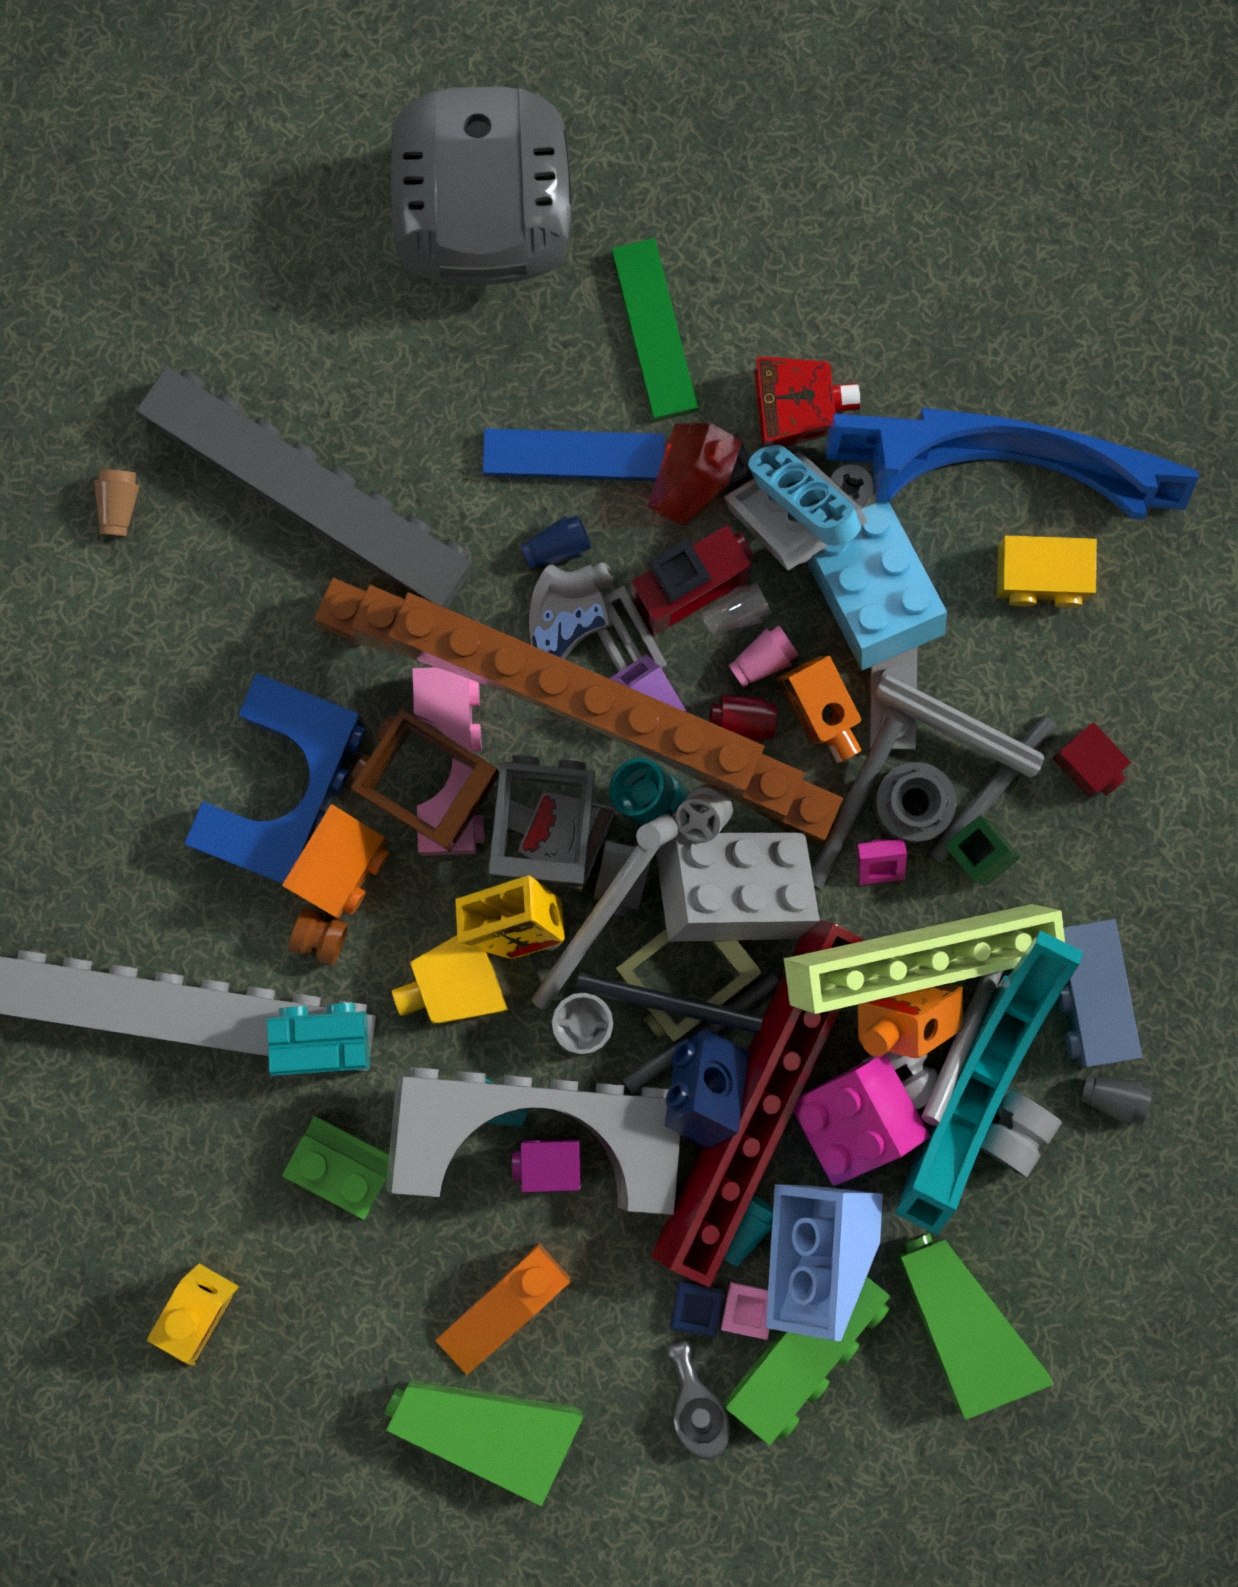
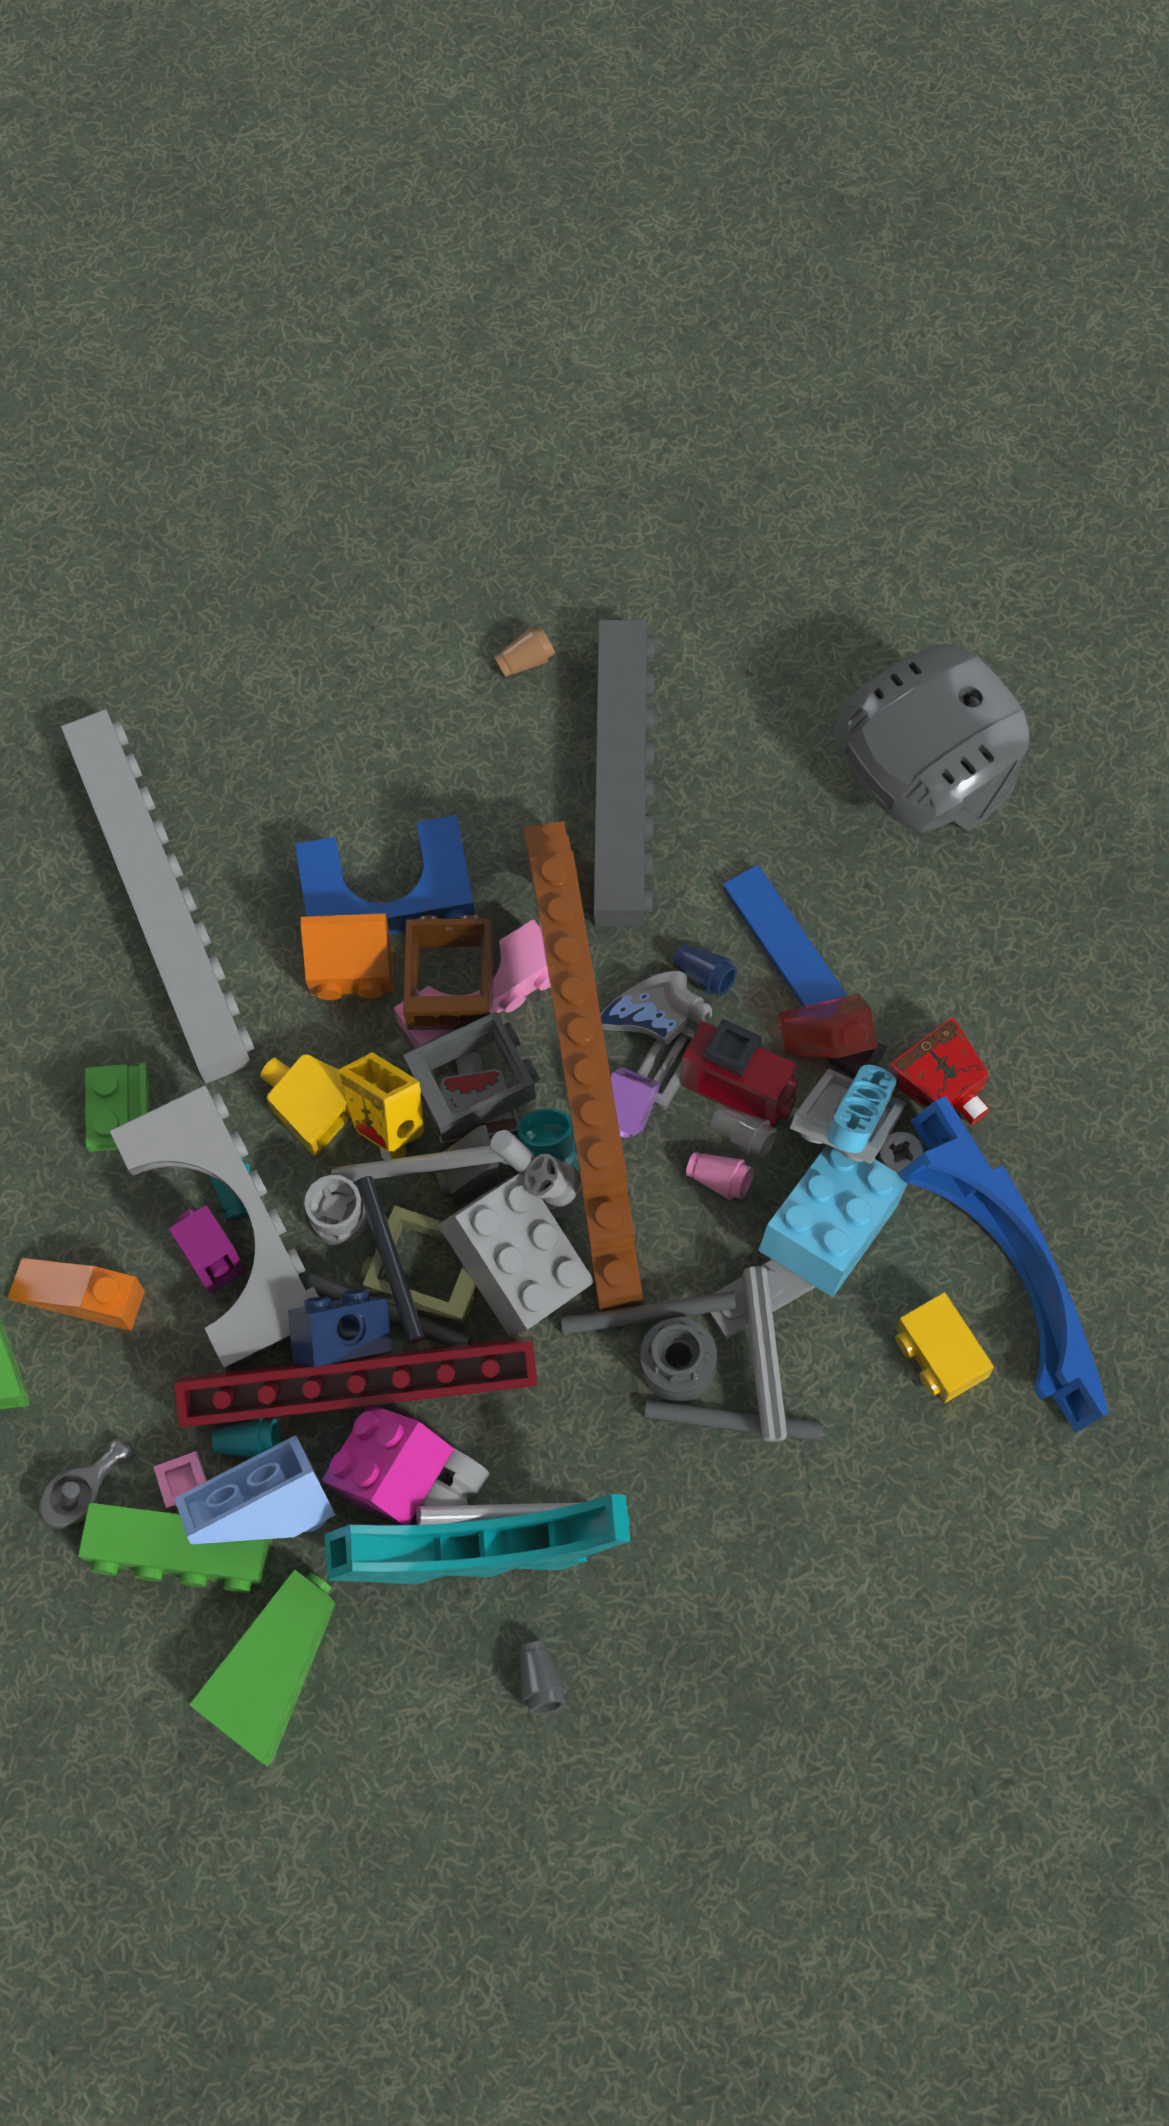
camera: 65 degrees right, 15 degrees down
(316, 936) = (285, 984): dark orange wheel -> none
(318, 1042) = (199, 1019): teal brick -> none
(654, 330) = (924, 939): green tile -> none
(696, 1309) = (160, 1441): dark blue tile -> none
(745, 716) = (659, 1187): dark red brick -> none
(809, 691) = (714, 1218): orange torso -> none
(881, 861) = (613, 1363): dark pink plate -> none
(911, 1021) = (496, 1448): orange torso -> none
(916, 958) = (545, 1423): yellowish green brick -> none
(982, 851) = (673, 1434): dark green brick -> none
(1019, 1133) = (457, 1609): light grey wheel -> none
(1093, 761) = (809, 1483): dark red brick -> none
(1099, 998) = (615, 1603): sand blue brick -> none

